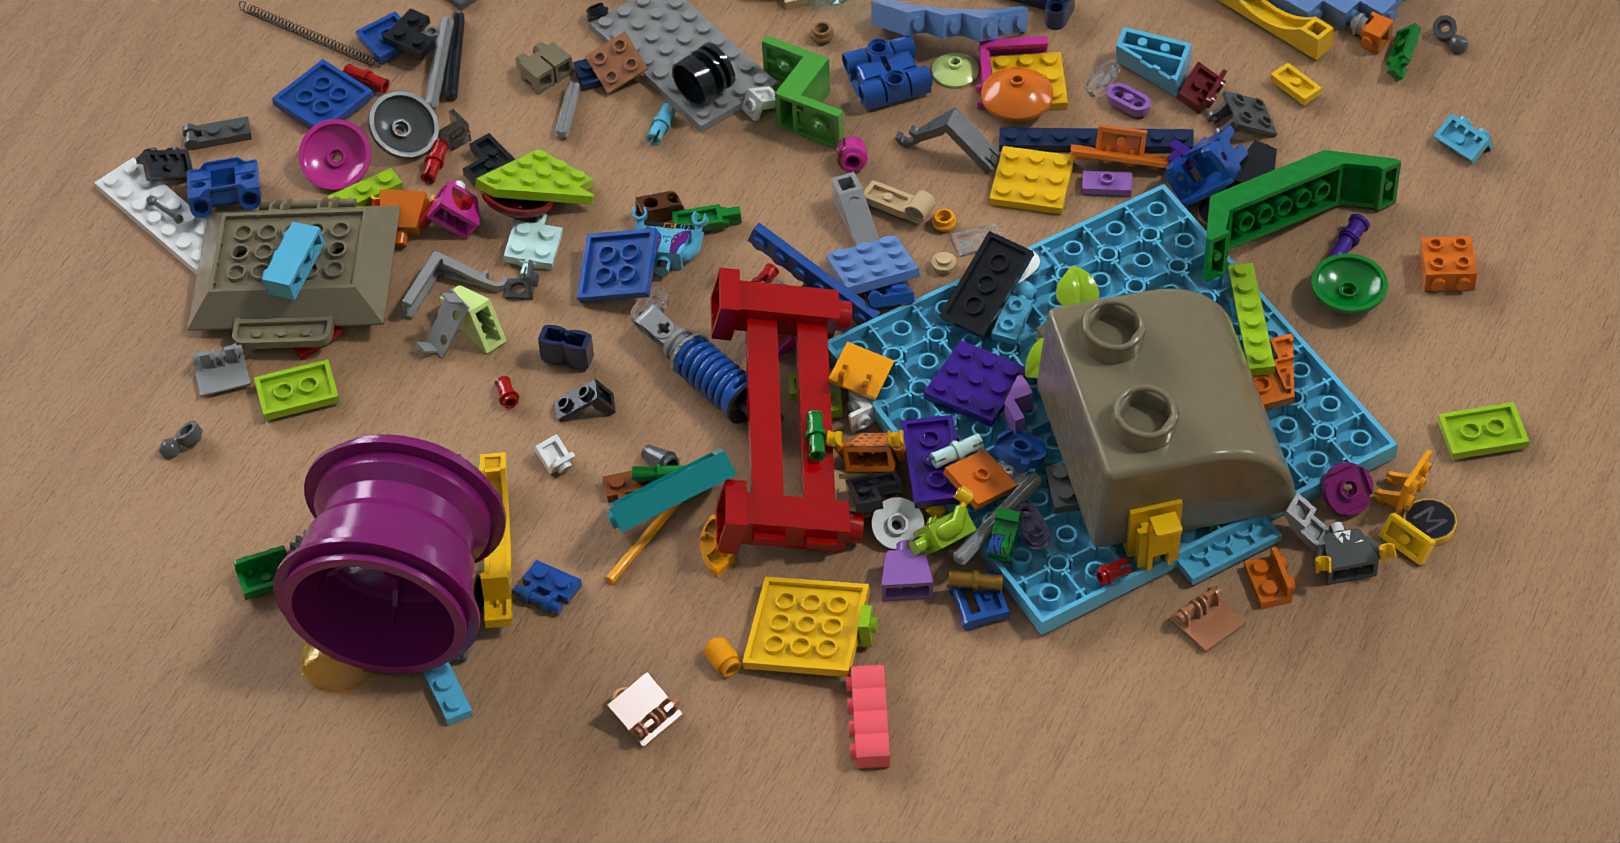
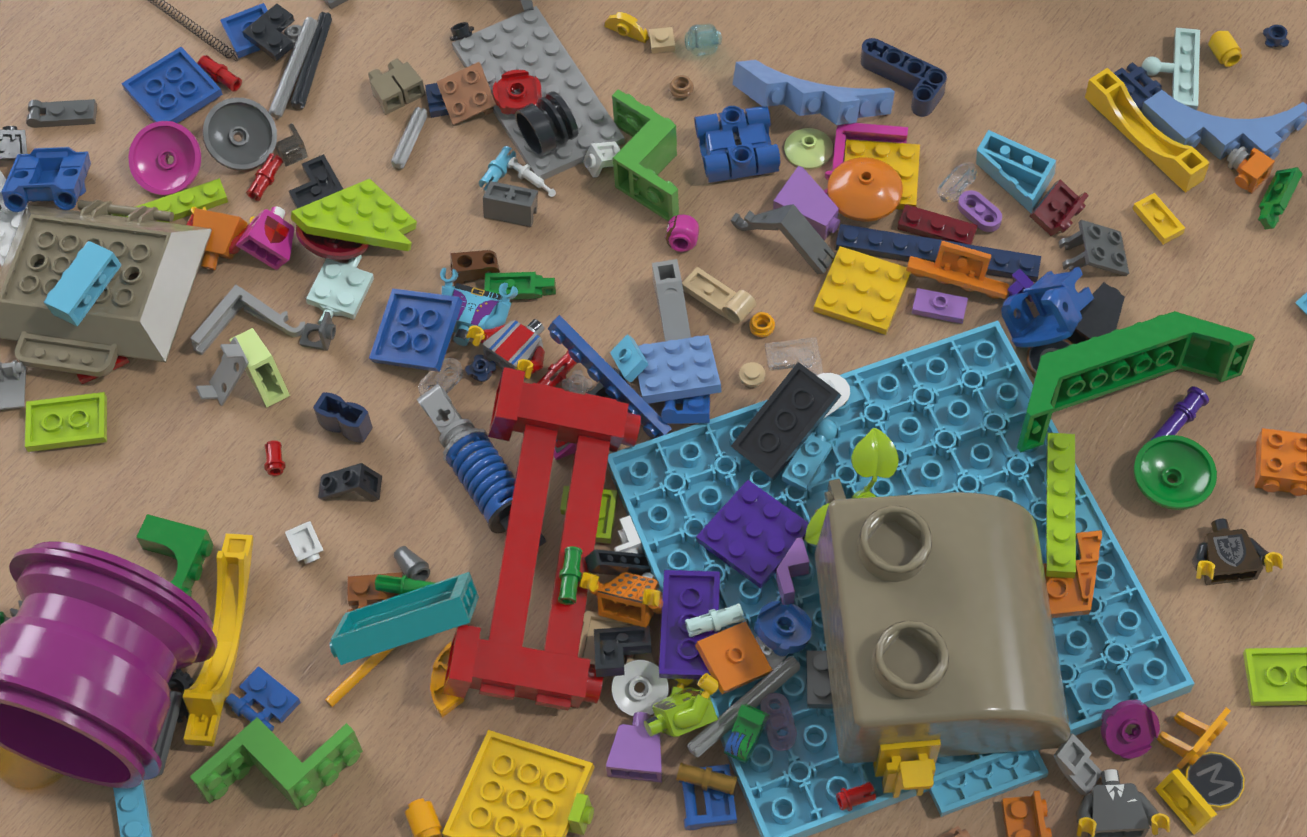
camera: 10 degrees right, 10 degrees up
(577, 628) = (261, 748): none -> bright green bracket
(661, 44) = (513, 80): none -> red plate
(681, 151) = (510, 203): none -> dark grey hinge
(685, 292) = (481, 374): none -> dark blue plate
(689, 124) = (525, 172): none -> white piece
(704, 265) = (512, 345): none -> torso
(827, 260) = (629, 358): none -> medium azure plate
(853, 424) = (616, 563): none -> black piece
(861, 371) = (635, 500): light orange plate -> none
(973, 109) = (810, 201): none -> medium lavender slope
(1088, 117) = (936, 226): none -> dark red plate
(1413, 344) = (1231, 556): none -> torso

